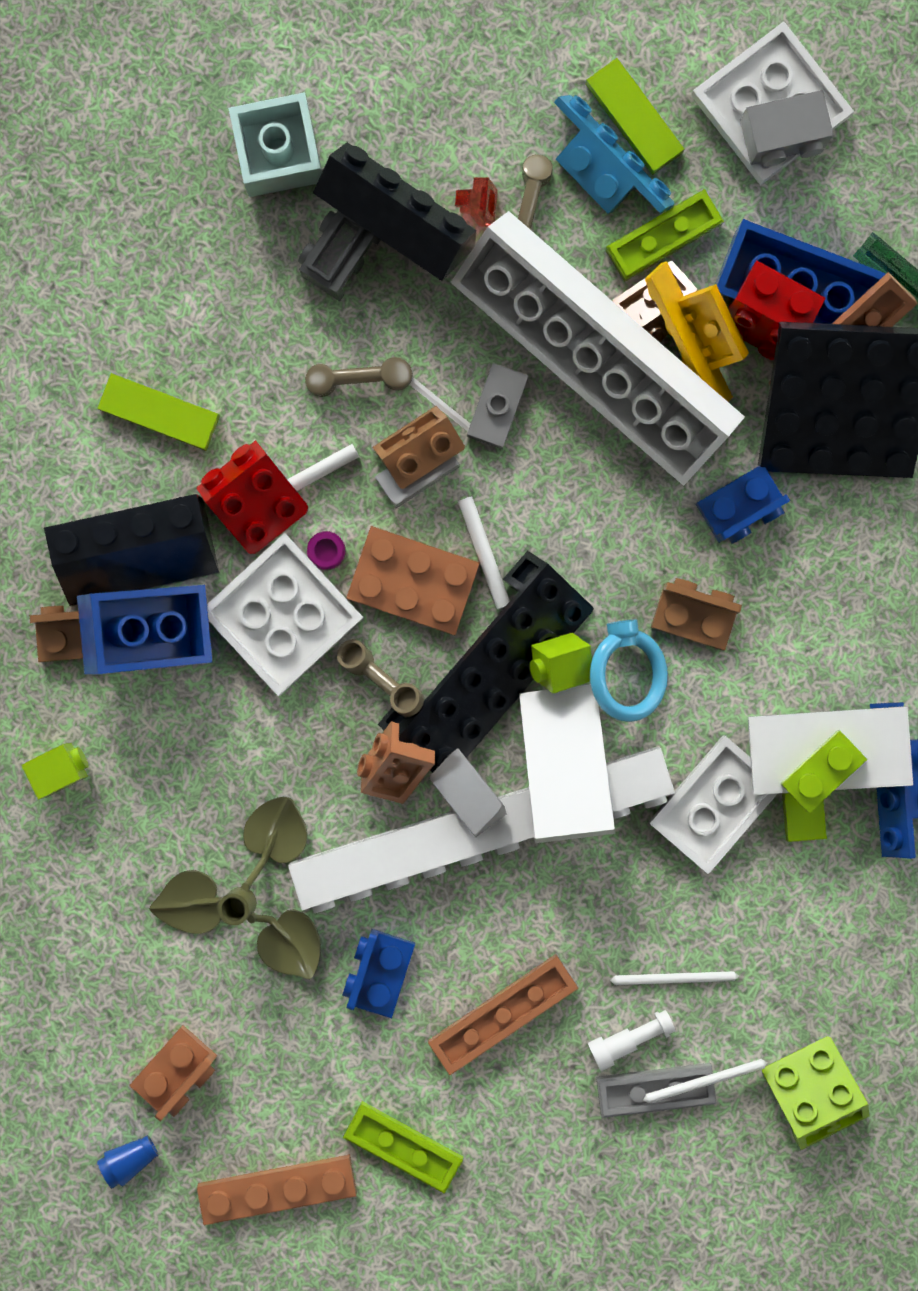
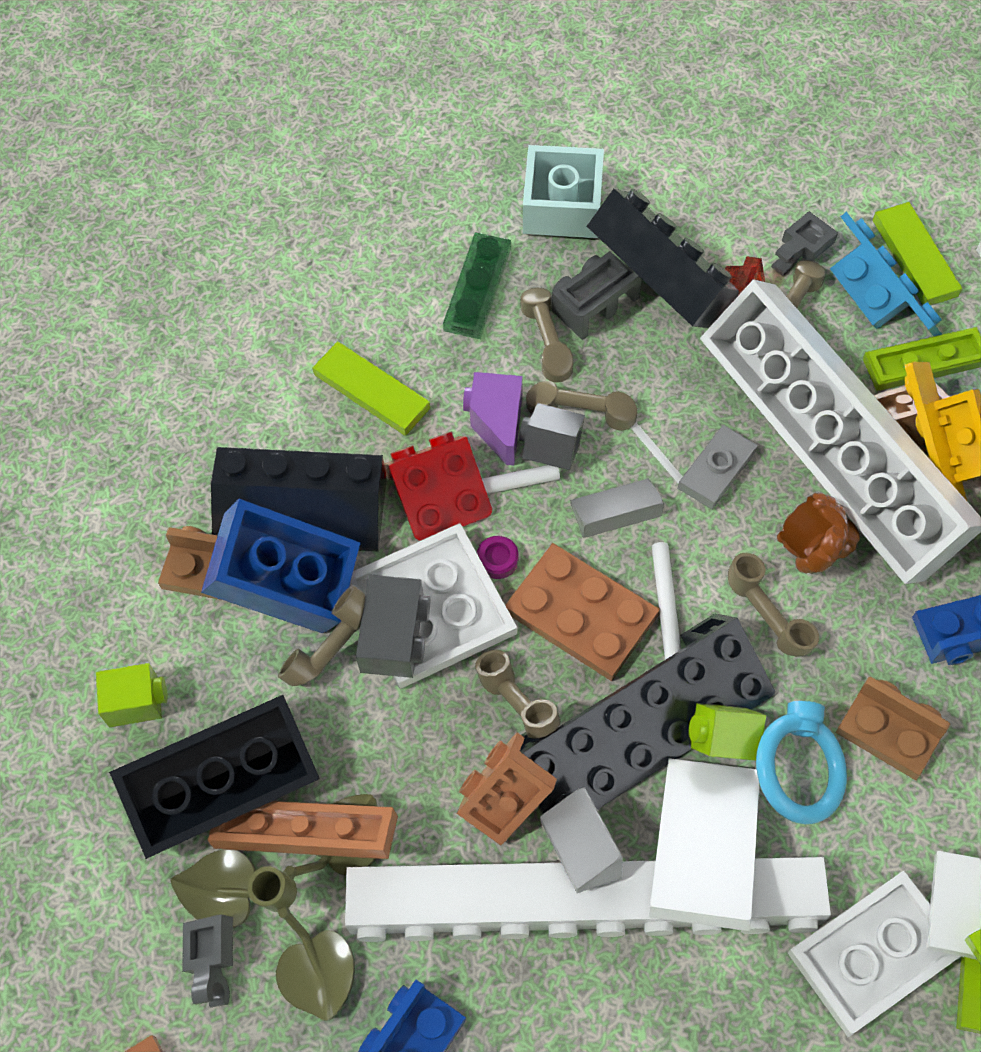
camera: 20 degrees right, 25 degrees down
(154, 819) = (214, 776): none -> black slope
(192, 705) = (300, 667): none -> dark tan bar
(200, 955) = (206, 951): none -> dark grey plate
(223, 269) = (477, 286): none -> clear green plate
(241, 842) = (310, 830): none -> nougat plate
(258, 653) = (391, 626): none -> dark grey brick
(283, 408) = (496, 411): none -> medium lavender slope
(322, 333) = (556, 357): none -> dark tan bar
(341, 422) = (551, 436): none -> dark grey brick
(419, 447) = (627, 480): medium nougat bracket -> none
(526, 133) = (804, 239): none -> dark grey plate
(546, 511) = (794, 638): none -> dark tan bar
(600, 455) = (818, 533): none -> dark orange hair

